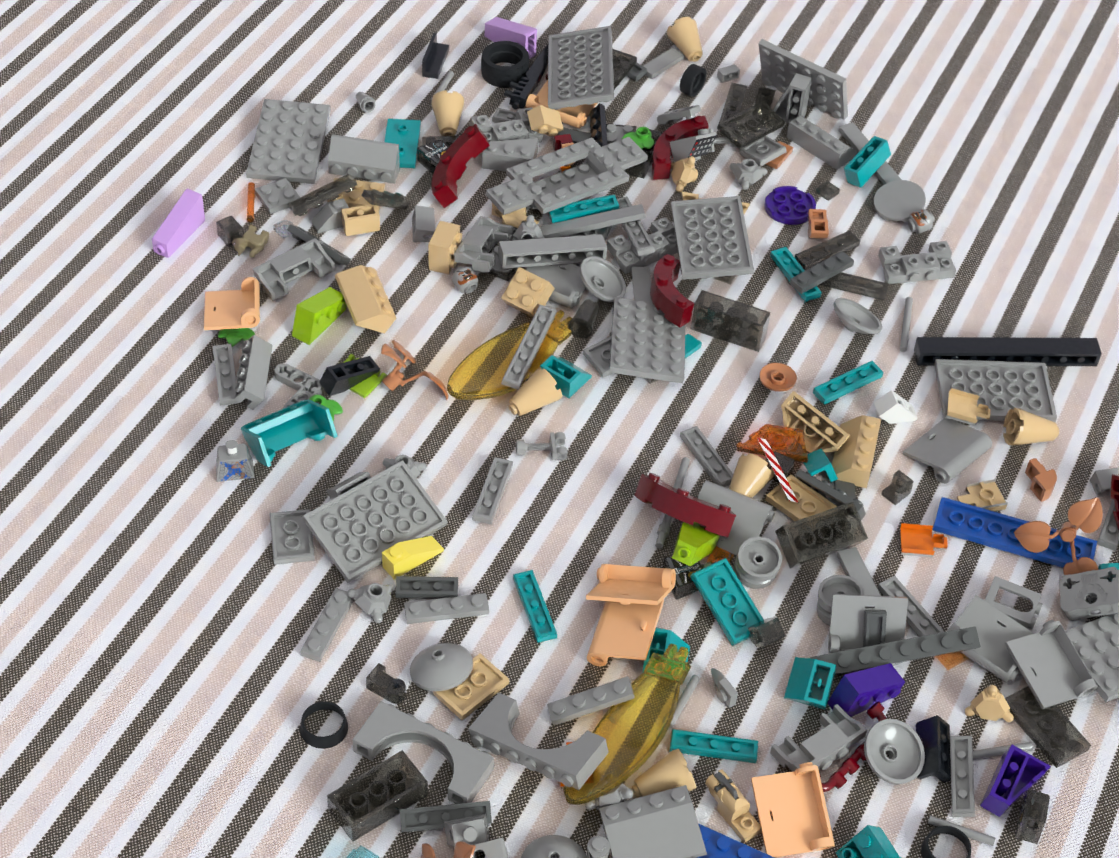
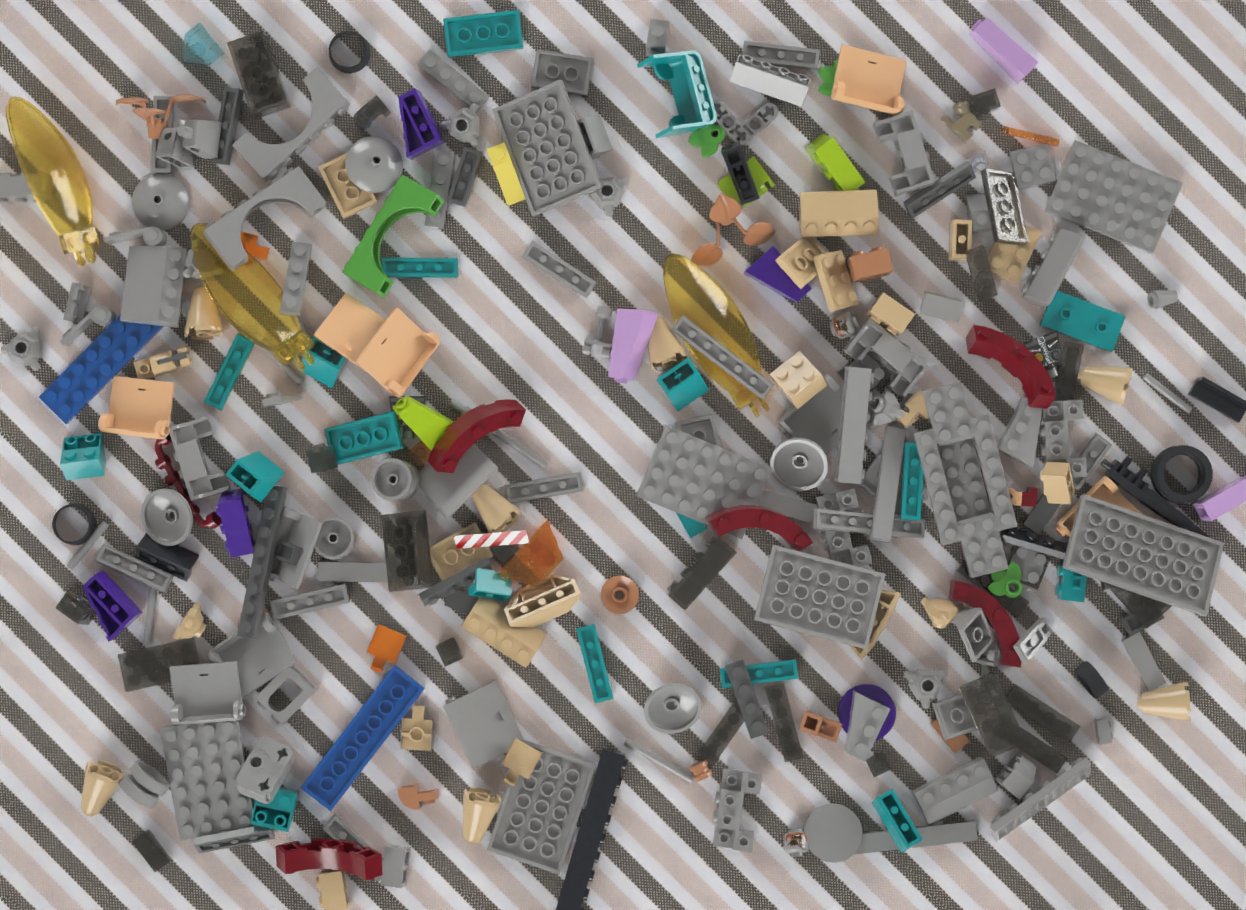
camera: 105 degrees right, 40 degrees up
(269, 608) = (483, 33): none -> teal plate
(386, 634) = (419, 126): none -> dark purple wedge
(405, 268) = (869, 265): none -> nougat brick
(419, 309) = (799, 261): none -> tan plate
(426, 288) = (835, 281): none -> tan plate
(436, 330) = (771, 275): none -> dark purple wedge
(538, 416) = (630, 342): none -> lavender slope
(552, 644) = (405, 199): none -> bright green arch
(584, 319) = (753, 429): clear smoke plant -> none
(621, 108) = (1071, 585): none -> teal brick
(803, 194) = (864, 725): none -> light grey wedge
(894, 409) = (544, 694): white slope -> none
(898, 291) = (701, 770): none -> nougat wheel
(1083, 515) = (321, 793): nougat plant -> none

